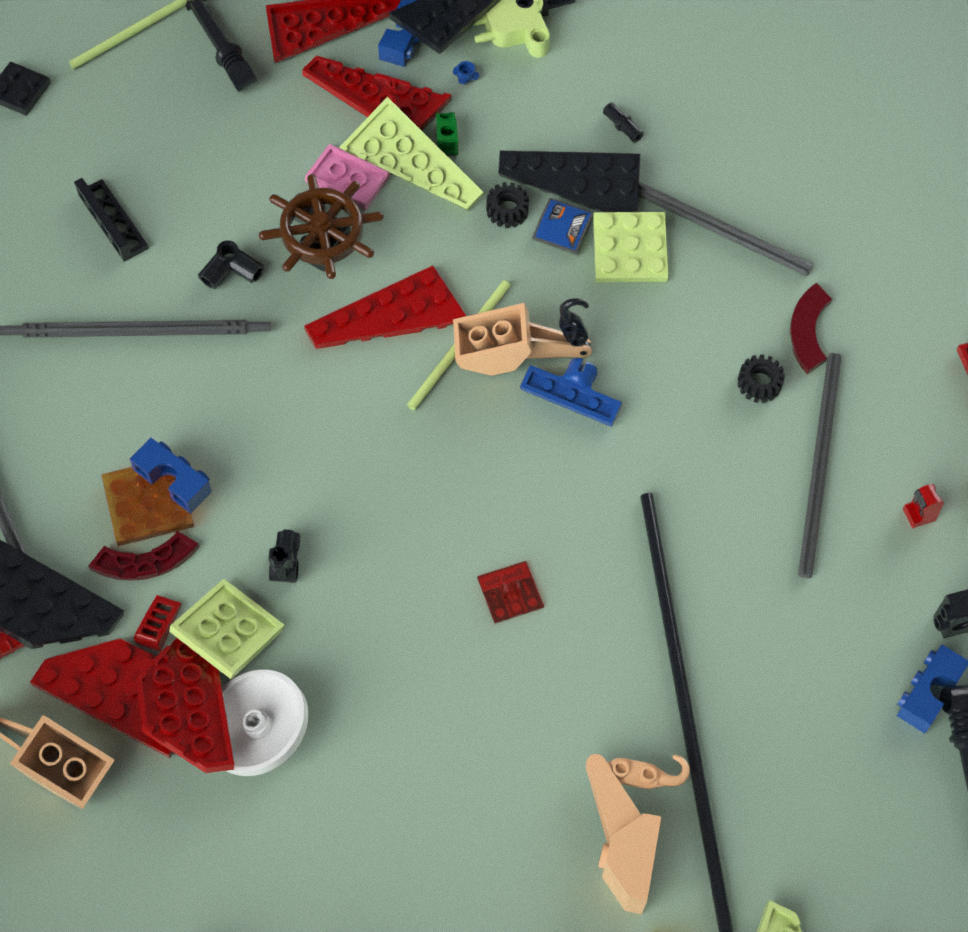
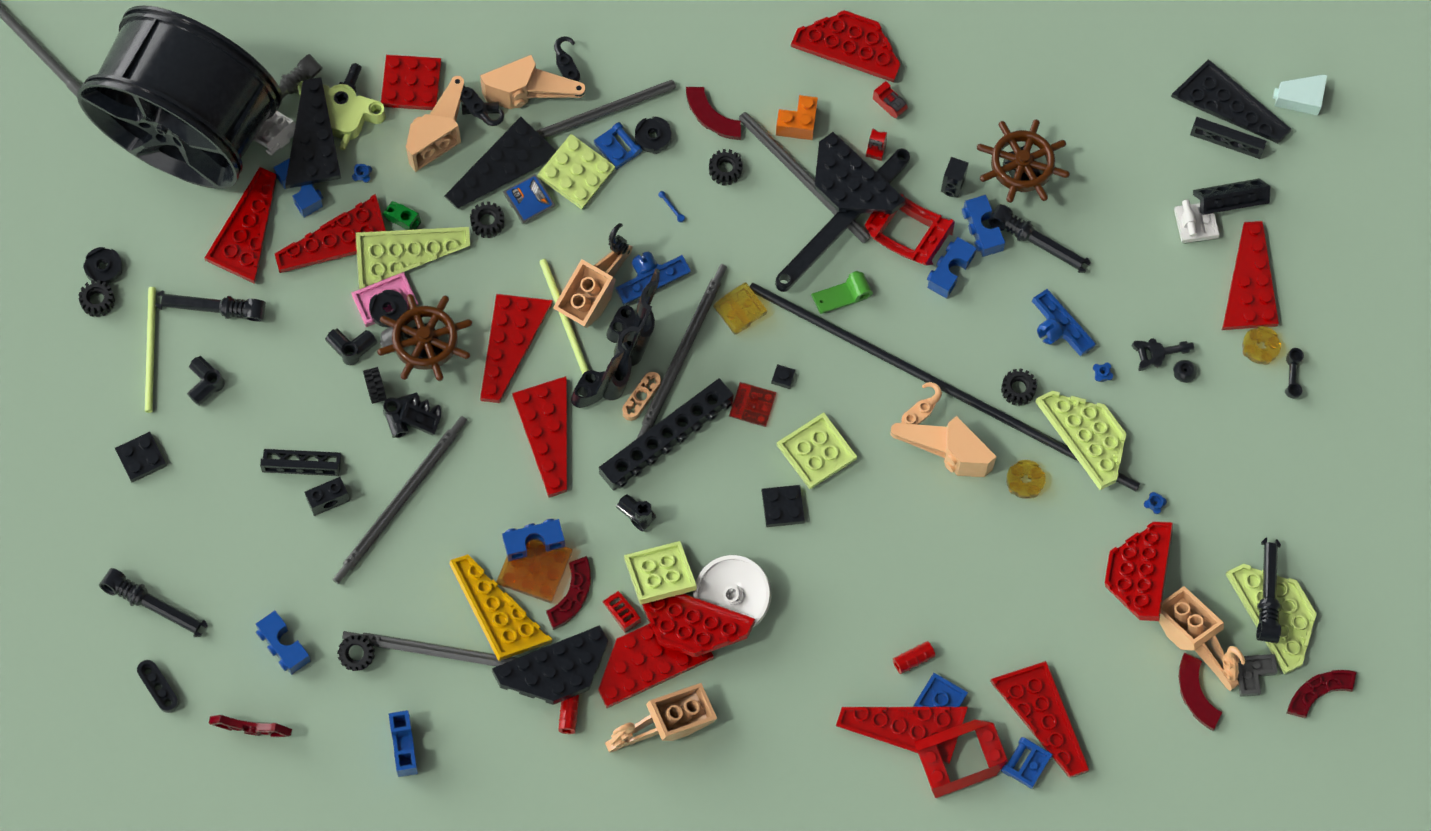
camera: 55 degrees left, 5 degrees up
(60, 508) = (499, 616): none -> yellow wing
(86, 261) = (327, 496): none -> black brick
(139, 89) = (206, 373): none -> black piece
(237, 283) = (420, 416): none -> black plate
(239, 222) = (374, 385): none -> black tyre
(264, 180) = (343, 345): none -> black piece
(319, 408) = (545, 424): none -> red wing
(335, 169) = (382, 300): none -> black plate
(392, 516) = (715, 391): none -> black brick
(411, 706) = (783, 506): none -> black plate
(437, 481) = (641, 404): none -> light nougat beam
(467, 418) = (632, 332): none -> black panel
(505, 696) = (816, 450): none -> yellowish green plate
(509, 479) = (682, 351): none -> dark grey axle
(556, 100) = (438, 131): none -> light nougat slope
(568, 600) = (783, 376): none -> black plate
(598, 52) = (411, 82): none -> red plate
(611, 501) = (740, 308): none -> clear yellow slope
(666, 376) = (680, 218): none -> blue hinge
(681, 133) = (520, 80): none -> light nougat slope
(686, 263) = (612, 148): none -> blue plate
(728, 602) = (841, 295): none -> bright green door
(731, 300) = (656, 144): none -> black plate
(757, 882) = (1016, 397): none -> black tyre
(804, 532) = (834, 228): none -> black piece
(854, 510) = (850, 182): none -> black plate
(856, 643) = (930, 243): none -> red wedge
(873, 684) = (958, 254): none -> blue arch
(879, 415) = (800, 122): none -> orange brick
(888, 864) = (1060, 324): none -> blue plate

